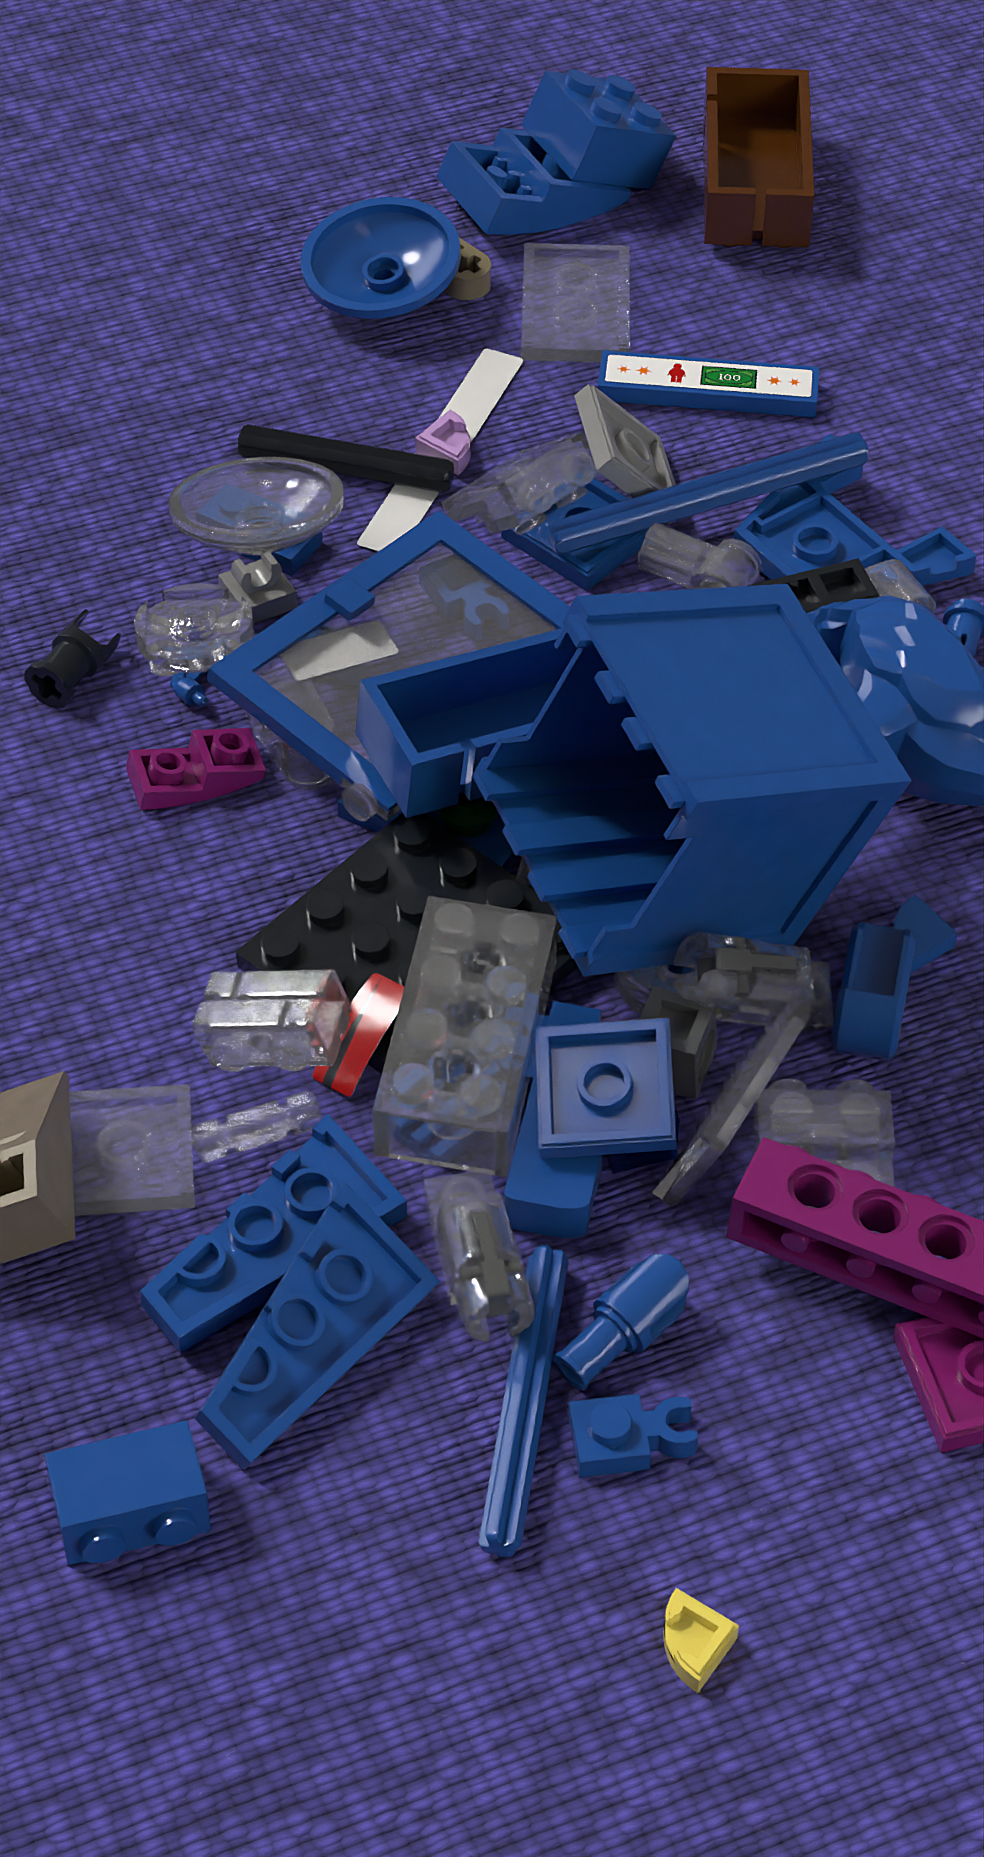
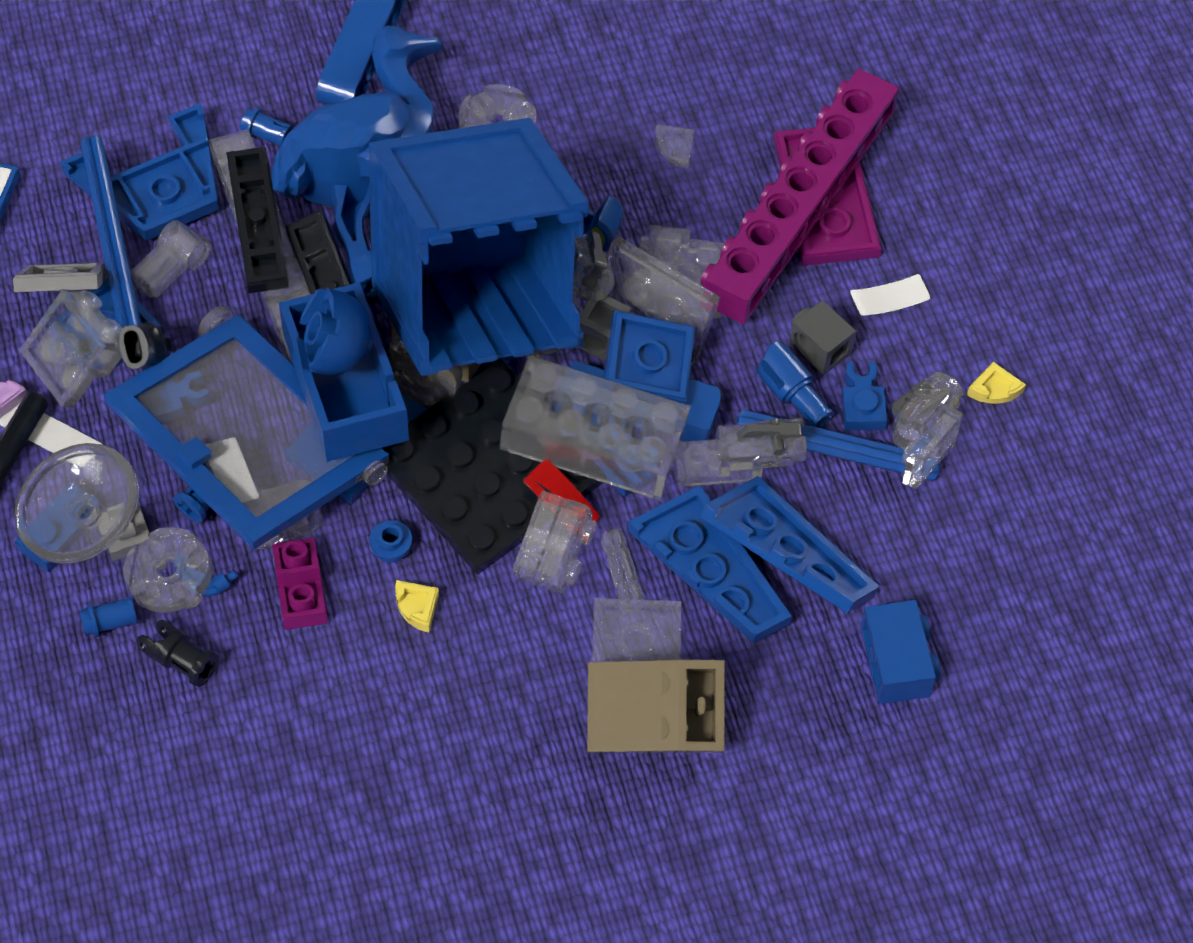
camera: 85 degrees left, 10 degrees up
(119, 577) = (107, 616): none -> blue pin
(176, 900) = (416, 603): none -> light yellow tile
(272, 855) = (394, 550): none -> blue plate
(508, 658) = (335, 333): none -> blue cylinder
(530, 542) = (143, 345): none -> black piece
(556, 1501) = (927, 425): none -> clear plate
(728, 1353) = (822, 337): none -> dark grey brick
(855, 1467) = (890, 296): none -> white sticker

